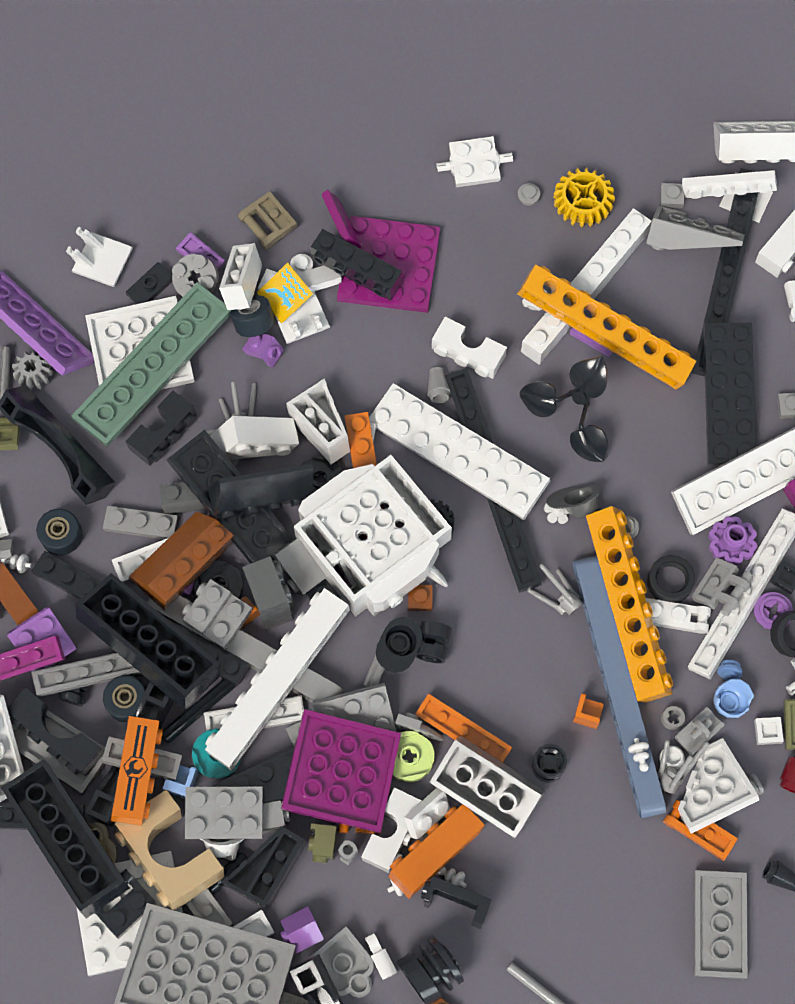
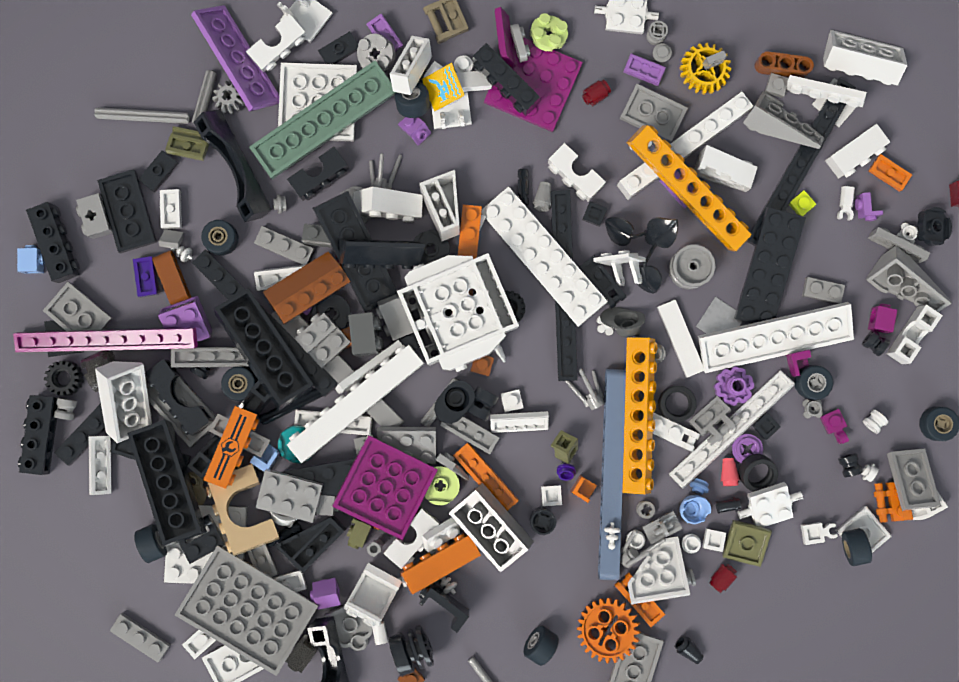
camera: 10 degrees right, 15 degrees up
(60, 926) = (149, 544): none -> black wheel
(66, 311) = (266, 56): none -> white arch
(123, 474) = (279, 203): none -> light grey plate
(272, 642) = (369, 366): none -> white tile
(357, 216) = (517, 36): none -> light grey plate
(362, 913) = (372, 595): none -> white panel
(386, 195) = (552, 24): none -> yellowish green plate
(410, 378) = (523, 186): none -> black axle
(430, 681) = (473, 434): none -> light grey plate
(466, 255) = (596, 92): none -> dark red brick
(469, 631) = (512, 400): none -> white plate
(485, 652) = (519, 422): none -> white plate
(504, 388) = (594, 214): none -> black plate
(514, 216) = (644, 69): none -> medium lavender plate
(516, 173) = (654, 36): none -> light grey wheel
(527, 251) = (653, 109): none -> light grey plate
(539, 460) = (602, 281): none -> black plate
(544, 429) = (622, 257): none -> white plate
(550, 665) = (565, 446): none -> olive brick
(551, 730) = (551, 495): none -> white plate
(560, 701) = (566, 471): none -> dark purple plate
(591, 182) = (714, 60): none -> light grey tile
(593, 920) = (541, 645): none -> black wheel
(637, 416) = (700, 259): none -> light grey wheel
(642, 298) = (725, 169): none -> white wedge
(650, 872) = (594, 620): none -> orange gear
(651, 504) = (680, 338): none -> white tile
(661, 166) = (791, 61): none -> dark orange beam
(686, 467) = (718, 317): none -> flat silver sticker
(742, 743) = (691, 543): none -> white plate
(744, 313) = (802, 203): none -> neon yellow plate
(761, 645) = (729, 473): none -> coral cone
(772, 684) = (728, 505): none -> black pin

